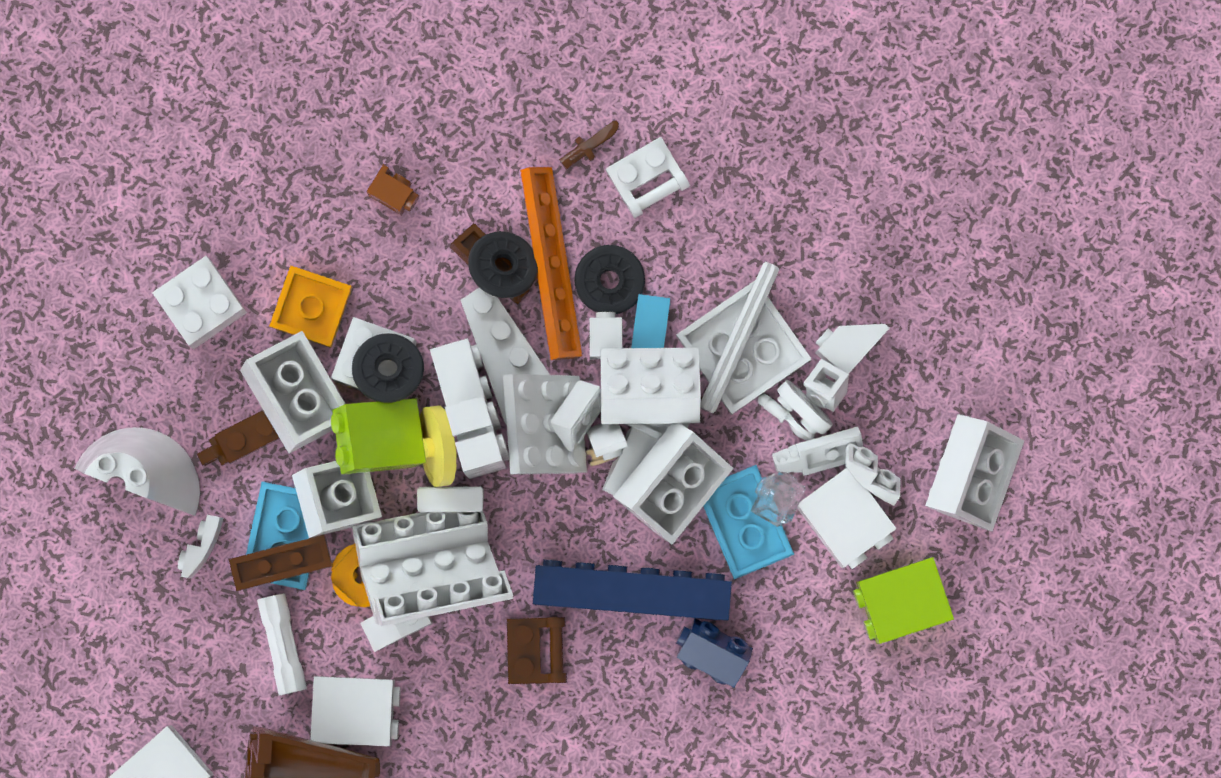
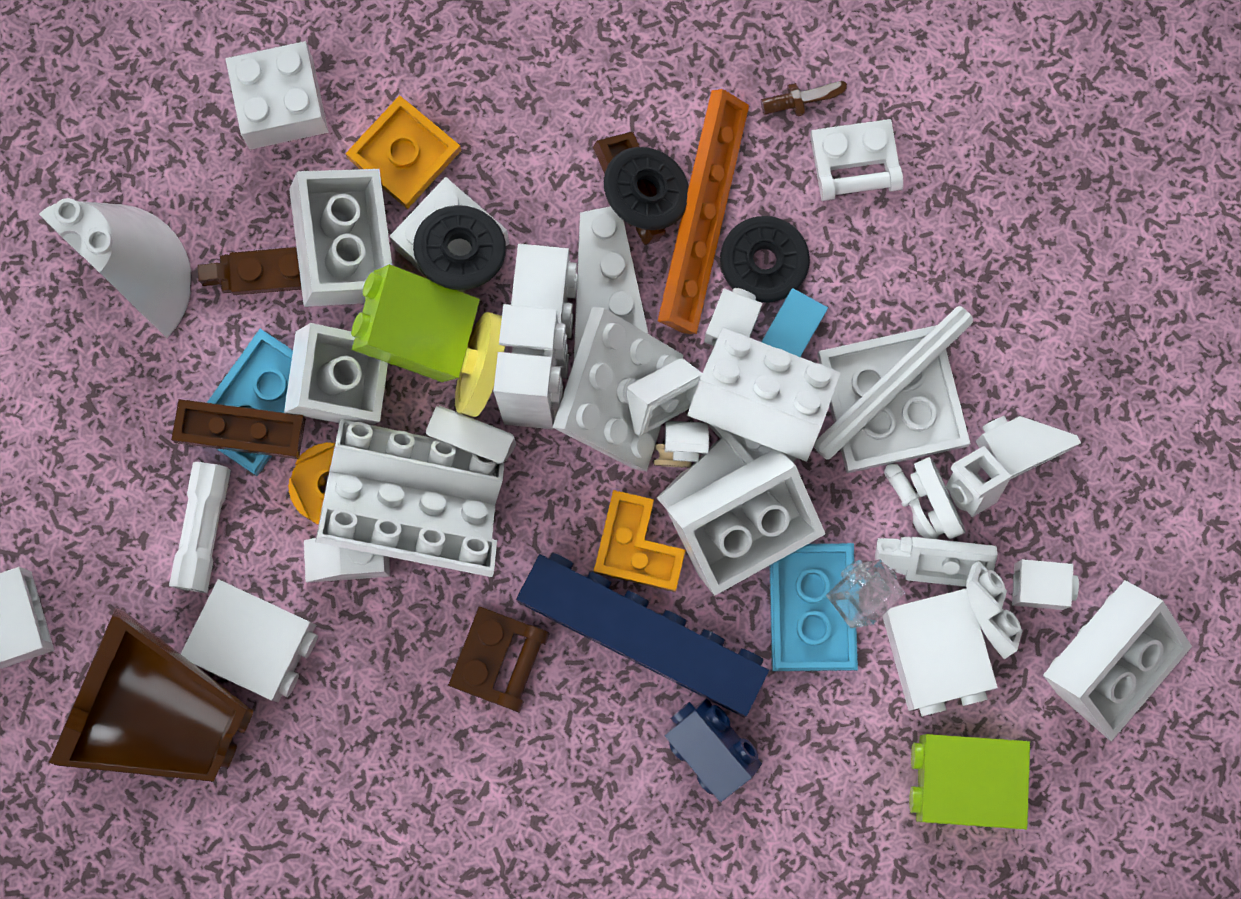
camera: 25 degrees right, 5 degrees down
(195, 556) = (143, 384): white slope -> none
(392, 191) = (552, 59): dark orange brick -> none
(594, 536) = (627, 554): none -> light orange plate
(903, 440) = (1044, 585): none -> white brick

